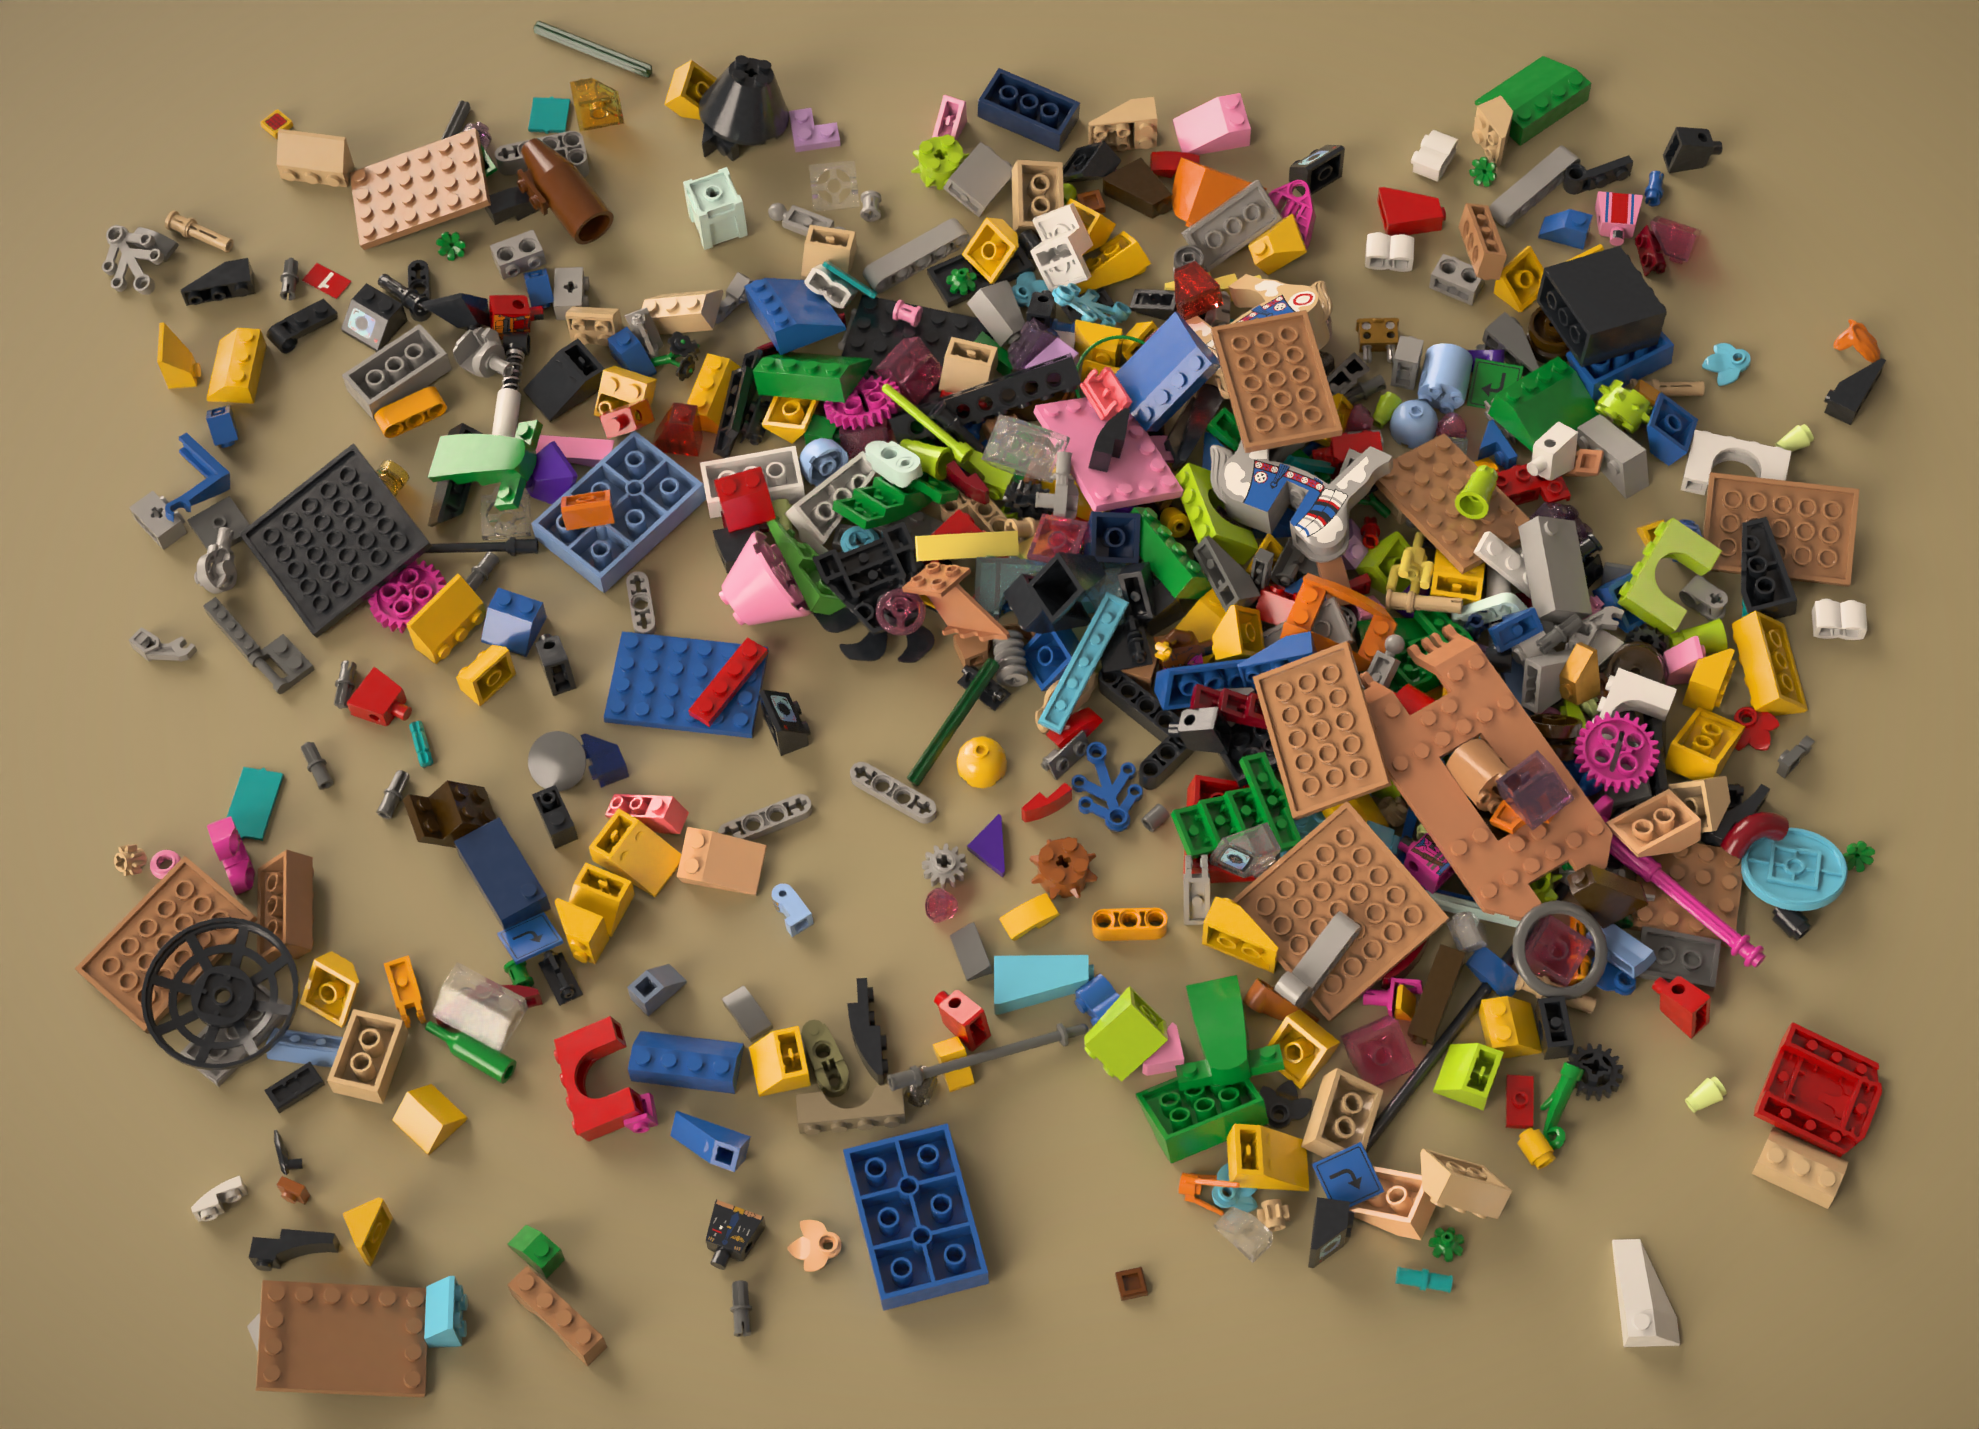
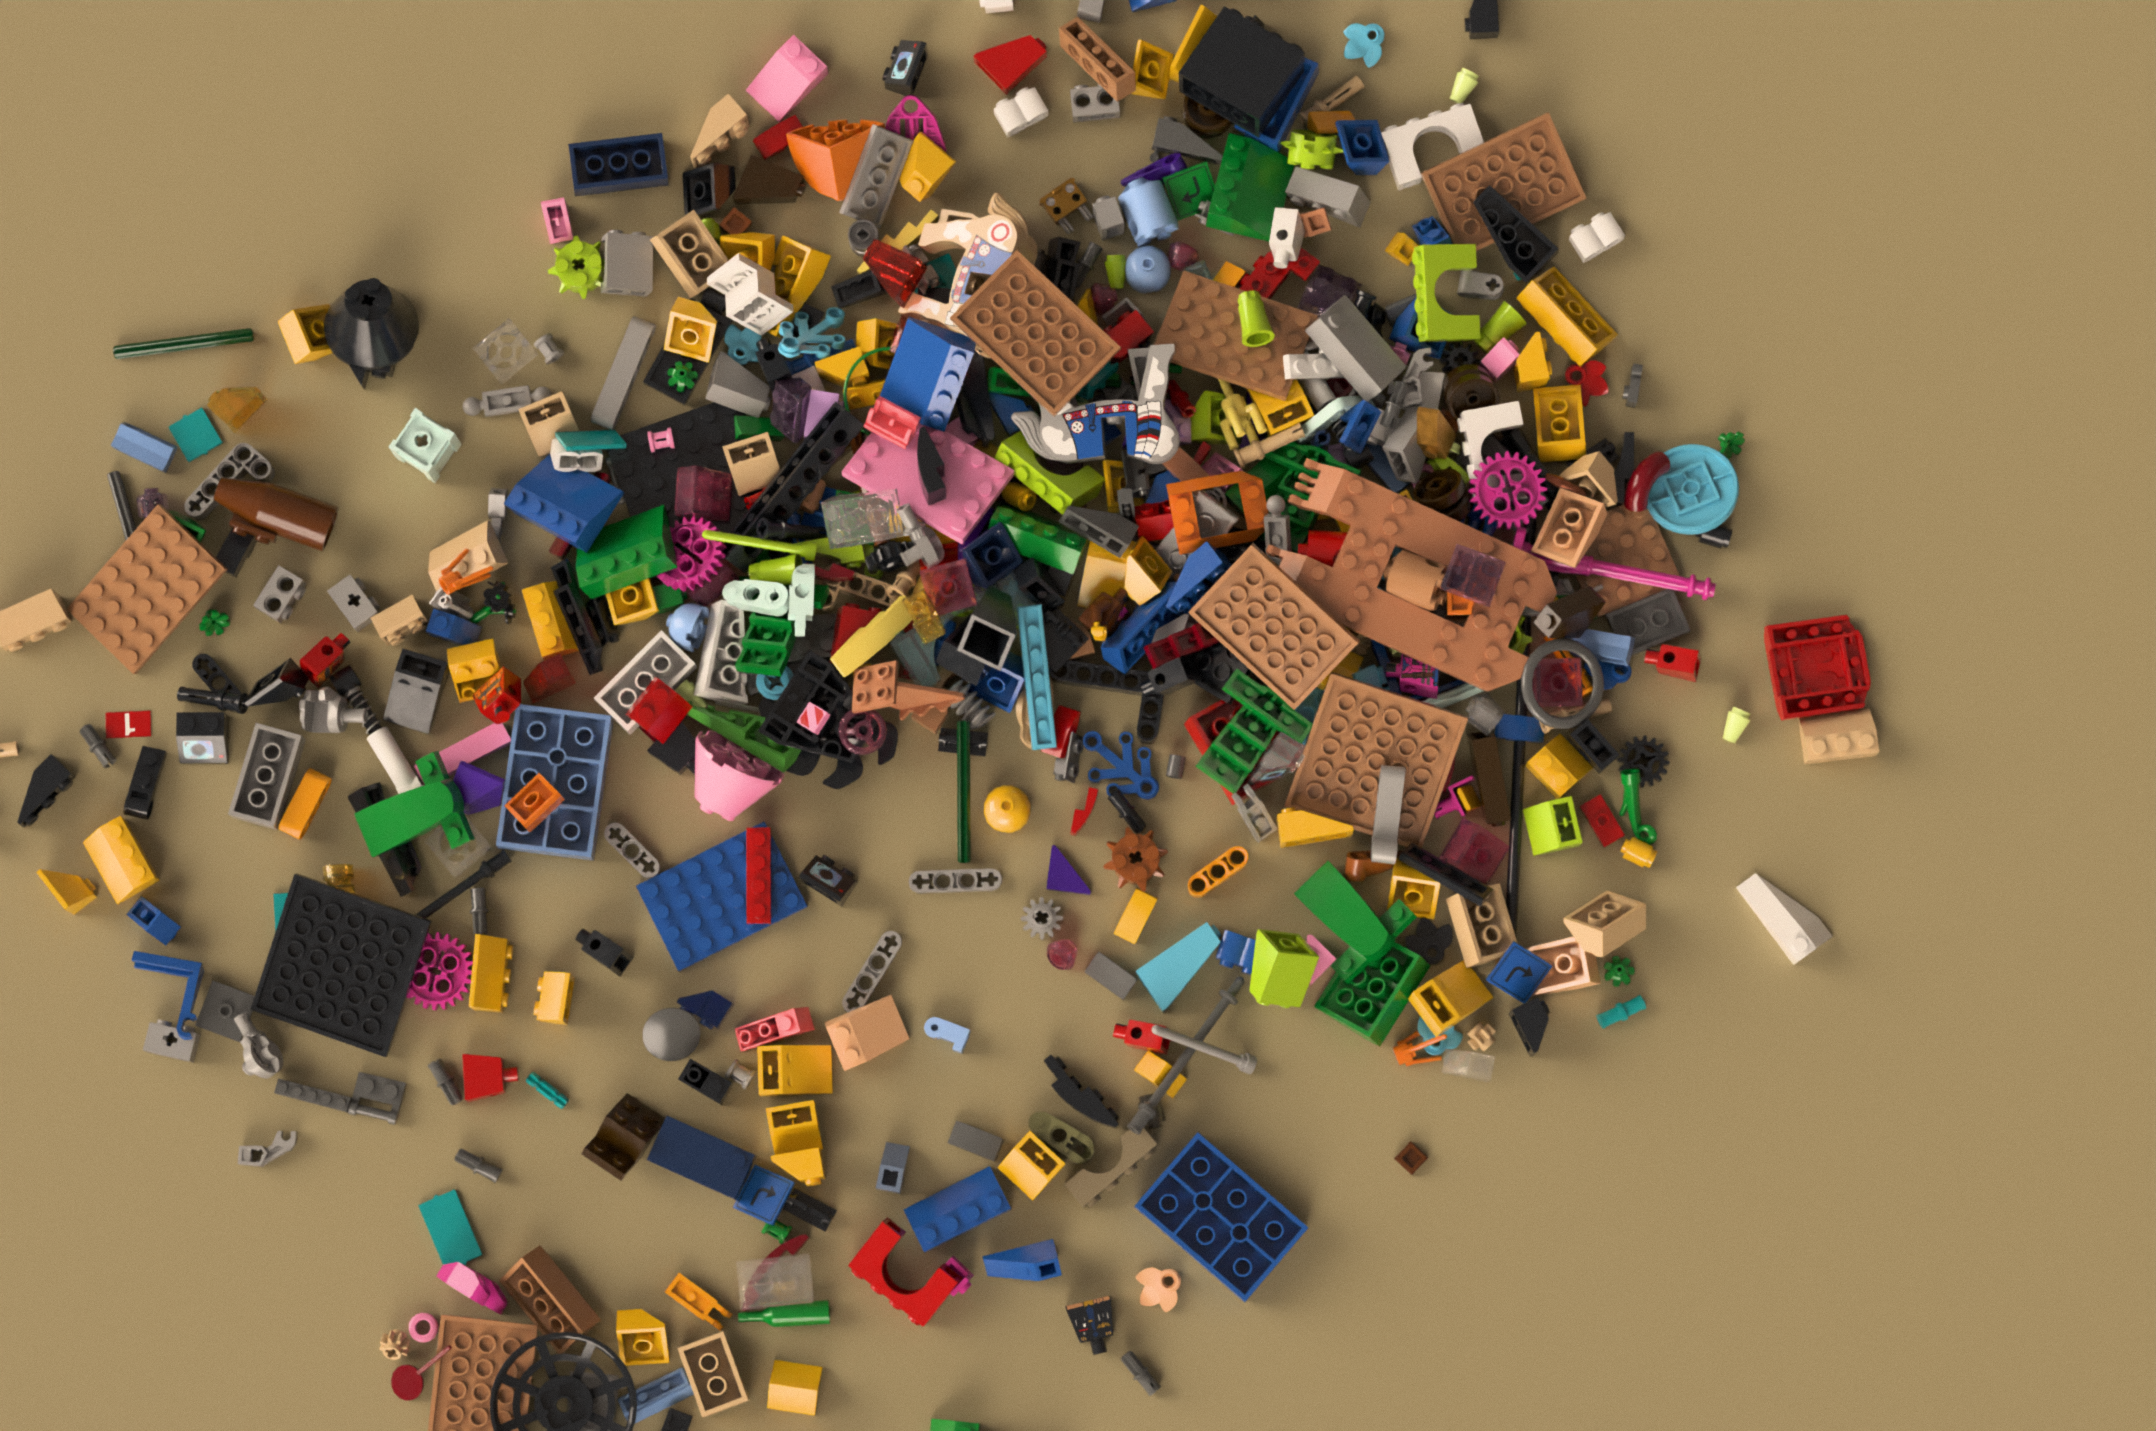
camera: 35 degrees left, 20 degrees up
(119, 894) = (408, 1380): none -> dark red piece
(393, 794) = (559, 1147): dark grey axle -> none
(503, 99) = (144, 446): none -> medium blue piece
(513, 621) = (541, 938): blue slope -> none
(539, 288) = (322, 614): blue slope -> none
(588, 828) = (740, 1074): none -> light grey bush
(654, 306) = (453, 581): none -> orange plant
(812, 137) = (442, 310): lavender plate -> none
(866, 577) = (813, 718): none -> bright pink tile
(928, 477) = (801, 597): none -> light aqua piece
(1021, 550) = (924, 616): none -> clear yellow slope
(1036, 1098) = (1245, 1062): none -> light grey piece
(1085, 825) = (1127, 811): none -> black axle
(1337, 1046) = (1446, 874): none -> black tile
(1496, 444) = (1223, 245): blue slope -> none
(1670, 783) = (1560, 482): none -> copper piece

